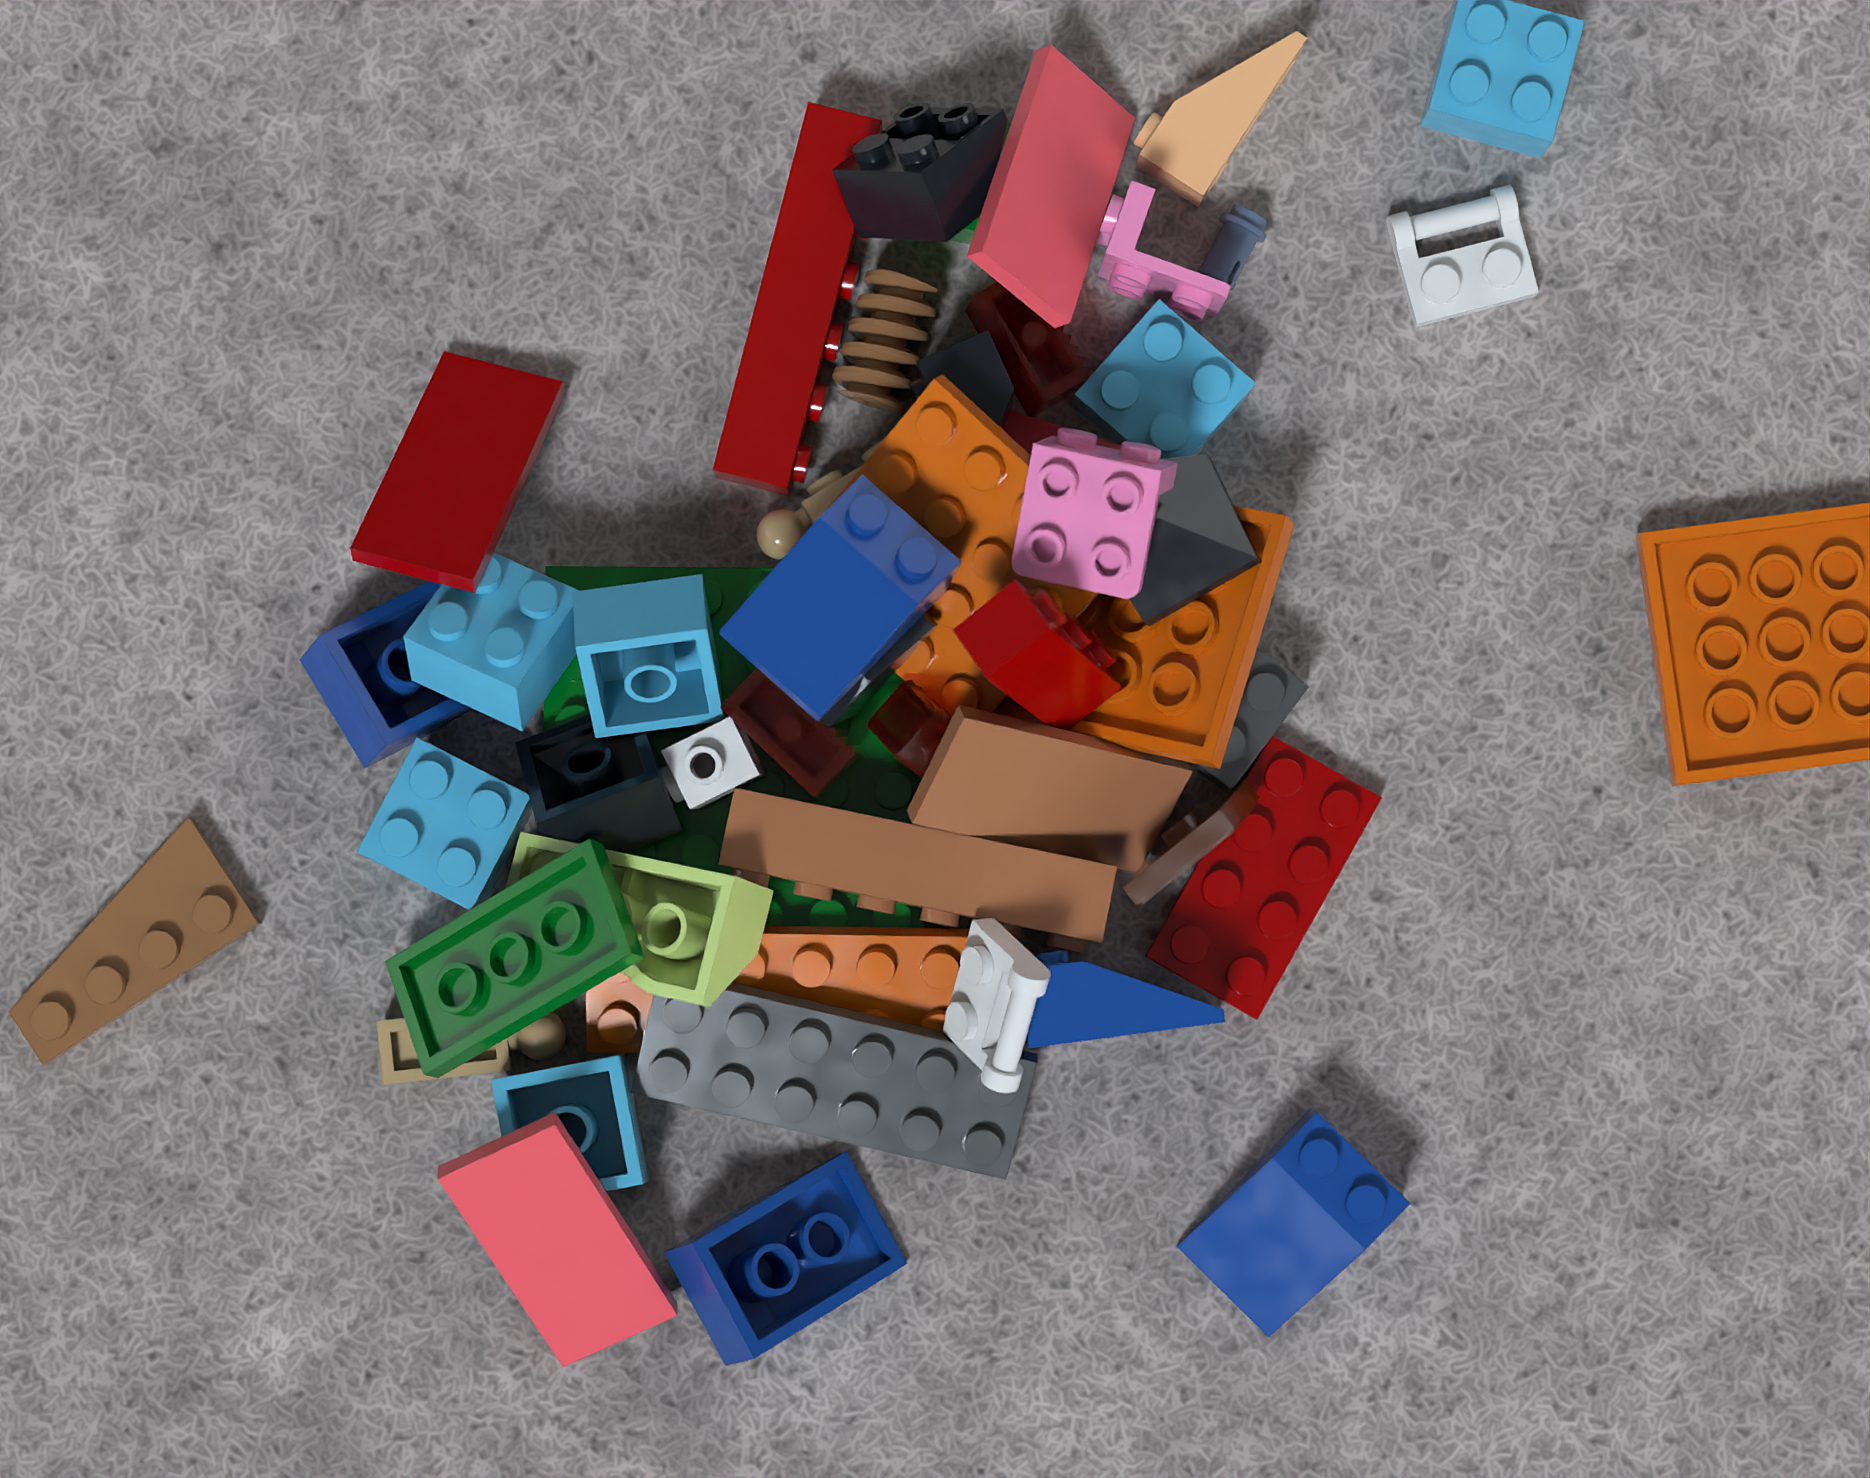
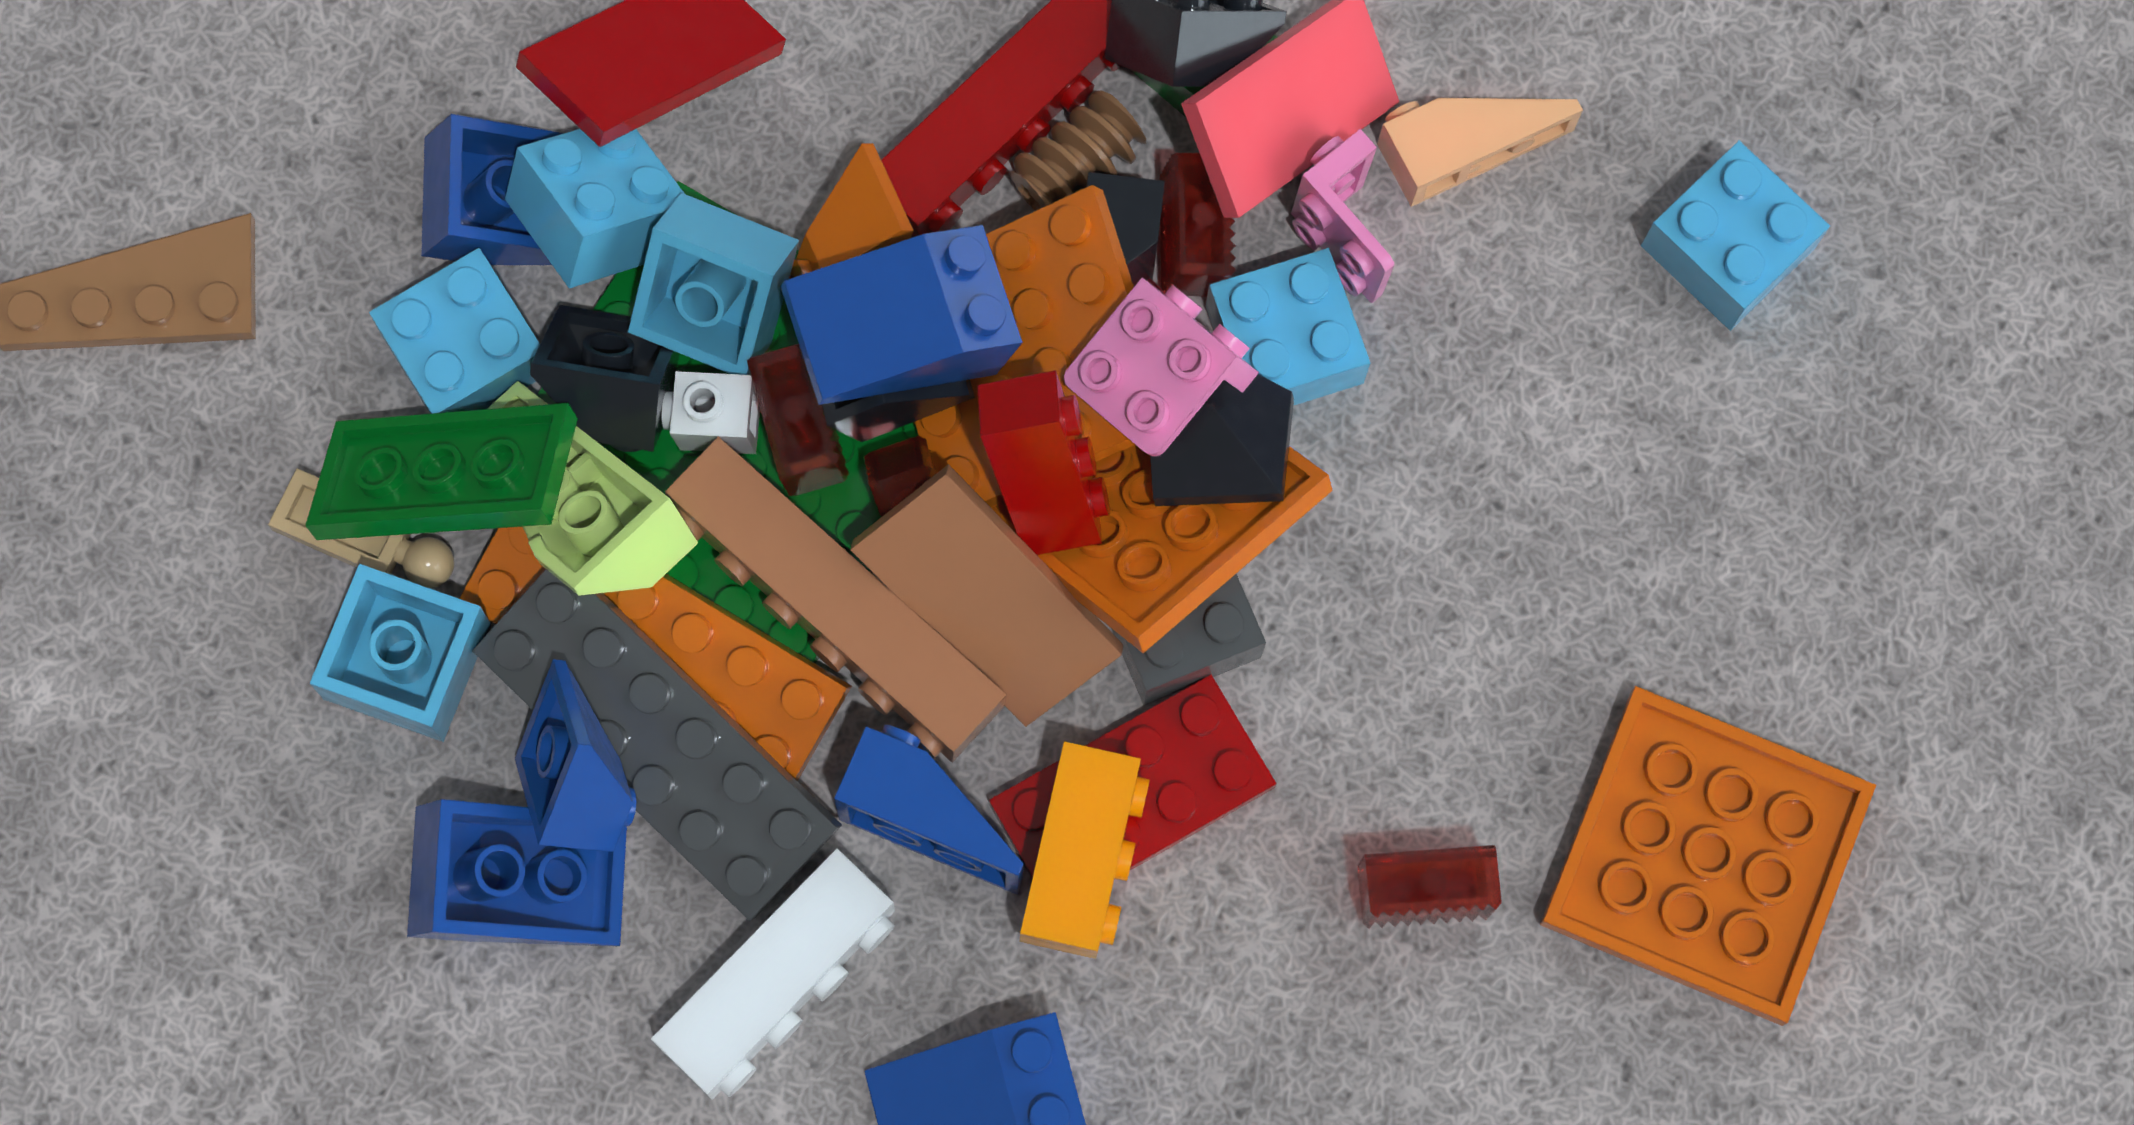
camera: 25 degrees right, 10 degrees down
(557, 1239) = (329, 733): coral tile -> none
(741, 531) = (856, 216): none -> orange slope
(783, 1149) = (572, 770): none -> blue slope
(994, 1002) = (827, 744): white plate -> none
(1057, 1215) = (775, 975): none -> white brick
(1189, 841) = (1083, 713): reddish brown plate -> none
(1233, 244) = (1423, 249): sand blue pin -> none
(1259, 960) = (1083, 851): none -> light orange brick
(1468, 276) = (1609, 390): white plate -> none
(1566, 813) = (1429, 885): none -> clear red brick

